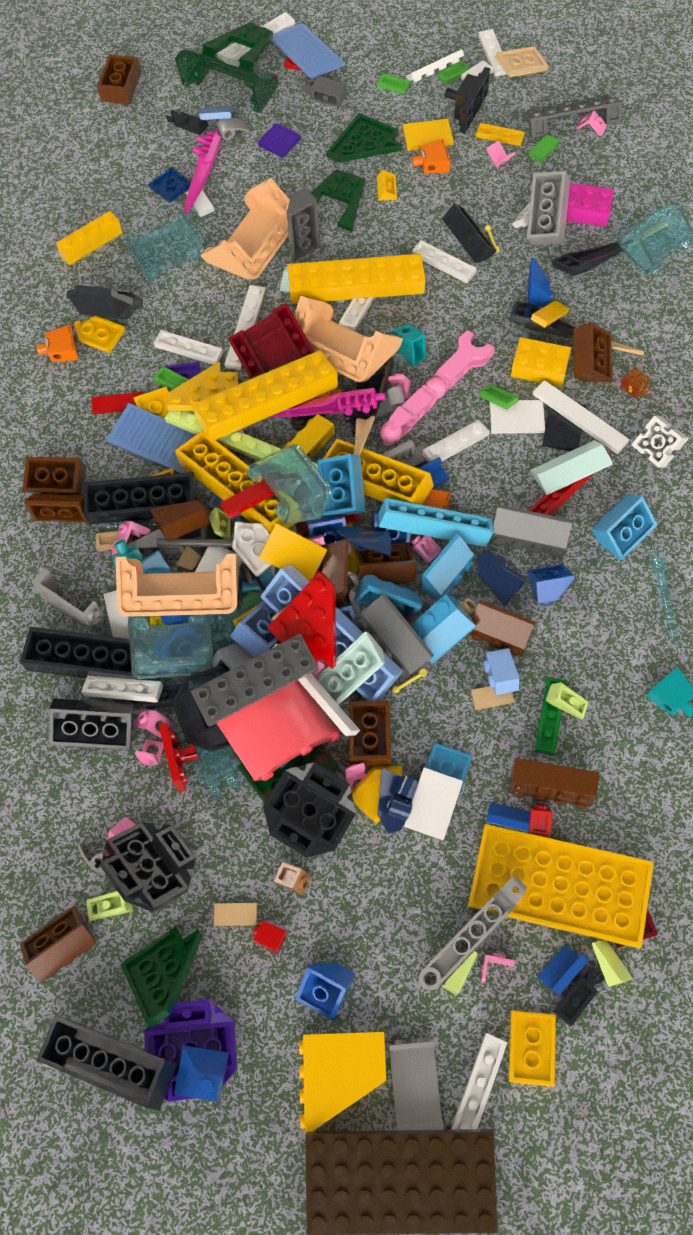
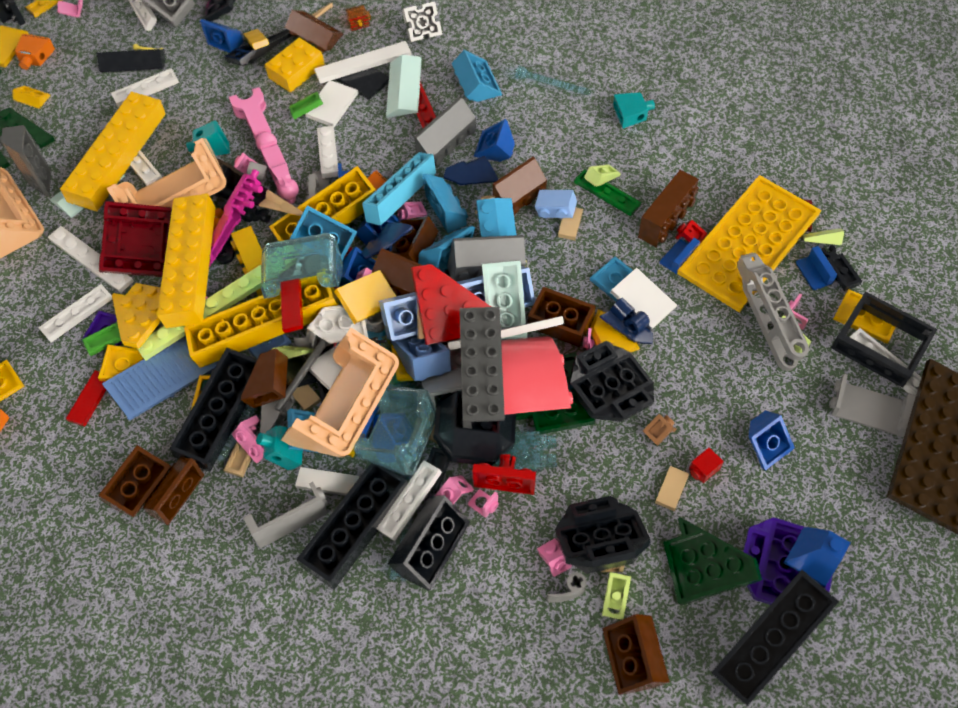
camera: 65 degrees left, 5 degrees down
(338, 1073) = (844, 458): yellow slope -> none
(539, 1068) = (873, 360): none -> black window

